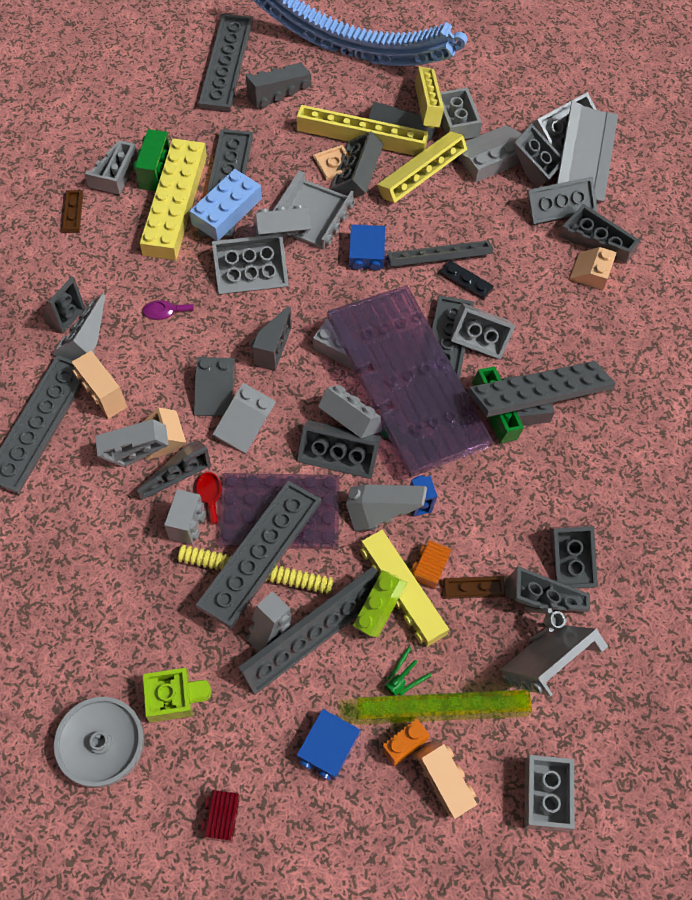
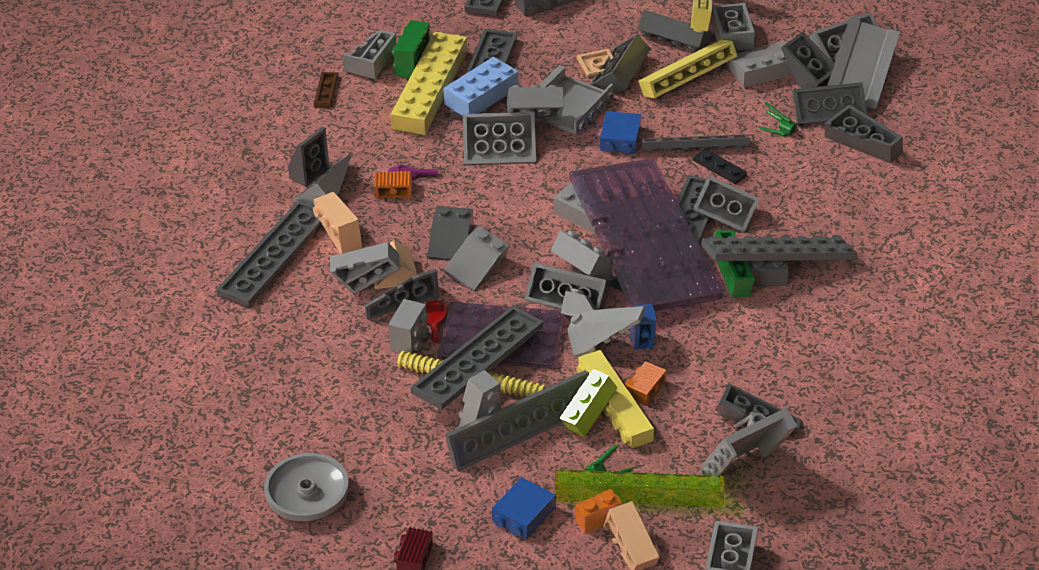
camera: 10 degrees right, 20 degrees down
(150, 327) = (393, 184): none -> orange brick
(171, 694) = (378, 458): lime brick -> none
(272, 340) = (512, 198): dark grey slope -> none
(349, 127) = (614, 32): light yellow brick -> none
(354, 471) = (576, 302): none -> light grey slope
(474, 587) = (686, 406): reddish brown tile -> none
(523, 227) = (786, 124): none -> green plant
(574, 555) = (790, 383): dark grey slope -> none
(593, 267) = (855, 162): light nougat slope -> none

